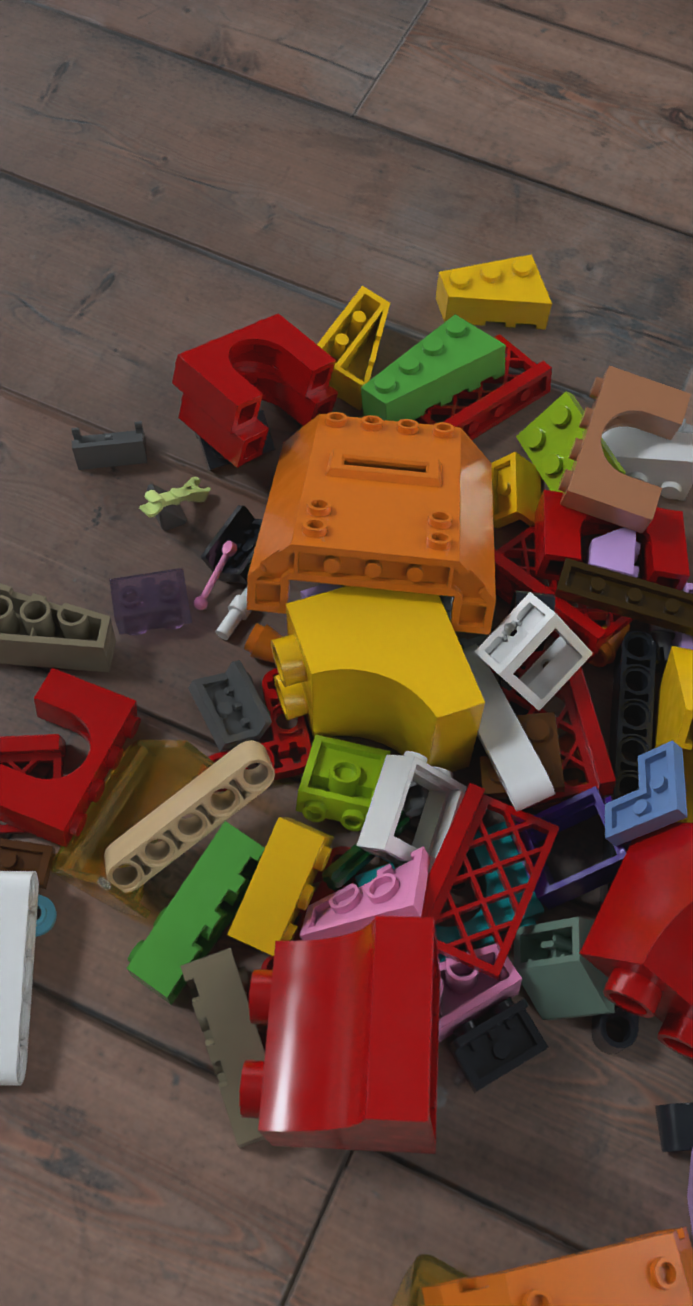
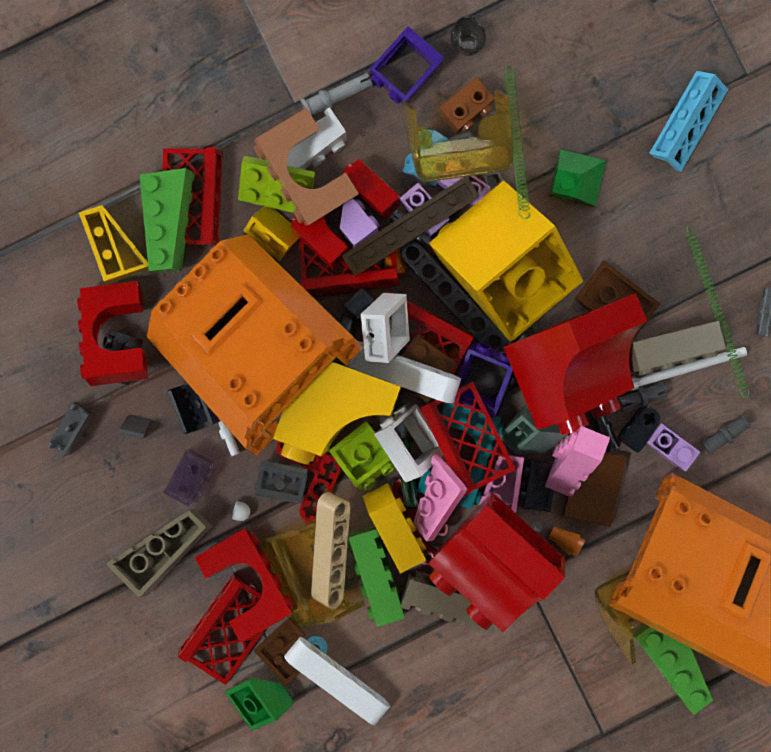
camera: 45 degrees left, 25 degrees up
(153, 689) = (241, 511): none -> white hinge
(188, 492) = (136, 408): yellowish green piece -> none
(228, 549) = (192, 416): bright pink hinge -> none
(272, 344) = (82, 301): red arch -> none
(456, 1154) = (567, 541): none -> orange cone
(495, 292) = (135, 129): yellow wedge -> none
(563, 1132) = (599, 493): none -> reddish brown tile
(591, 1041) = (576, 459): none -> bright pink wedge
(649, 1077) = (604, 427): none -> black pin
(656, 802) = (503, 337): medium blue plate -> none

